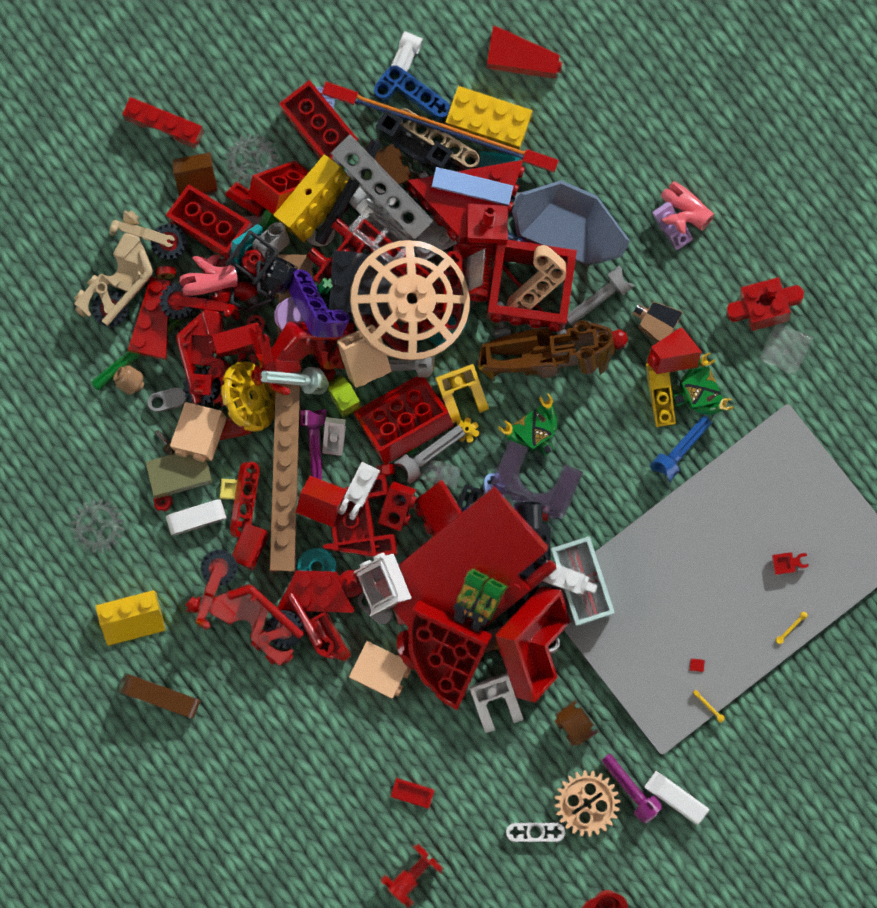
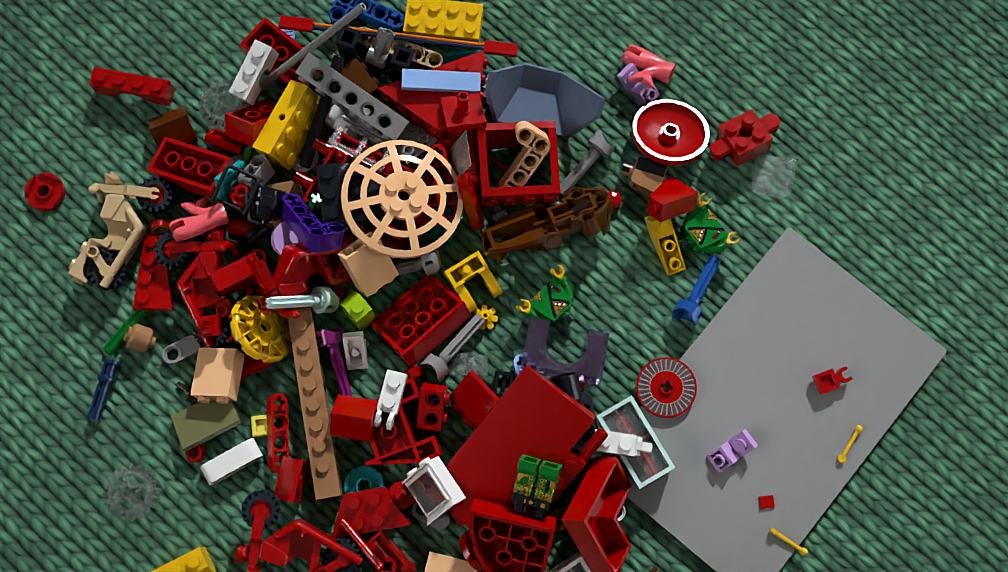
camera: 15 degrees left, 5 degrees down
(63, 223) = (52, 199): none -> red tile
(89, 413) = (105, 379): none -> dark blue pin
(295, 128) = (246, 84): none -> white arch
(345, 131) = (313, 45): none -> light grey piece
(417, 139) = (379, 52): none -> light grey piece
(476, 314) = (470, 201): none -> red beam
(642, 533) = (680, 380): none -> piece
(675, 609) = (732, 450): none -> lavender slope
(691, 282) = (670, 132): none -> red dish

